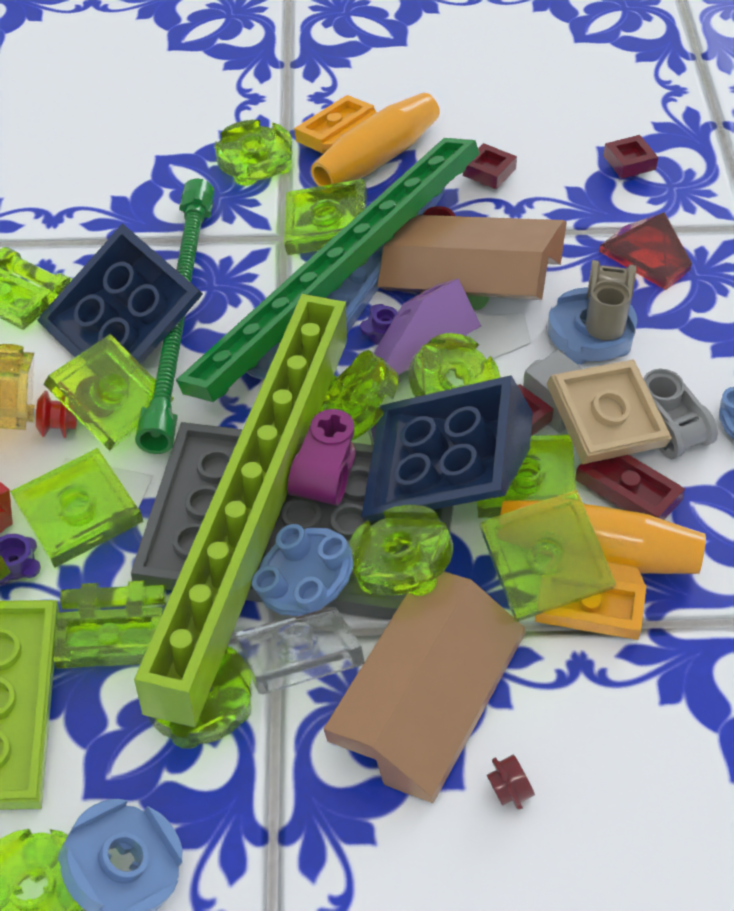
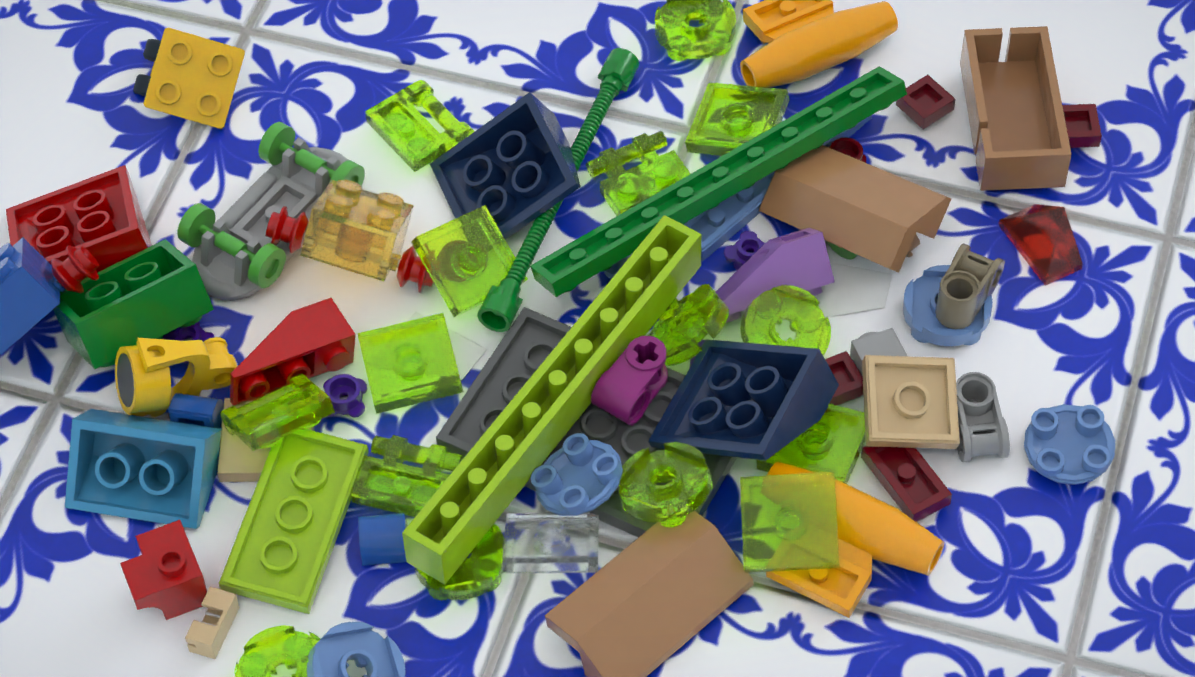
camera: 20 degrees right, 5 degrees up
(105, 698) = (382, 538): none -> blue brick
(243, 295) = (632, 186): none -> clear neon green plate
(576, 151) = (1015, 109): none -> medium nougat piece

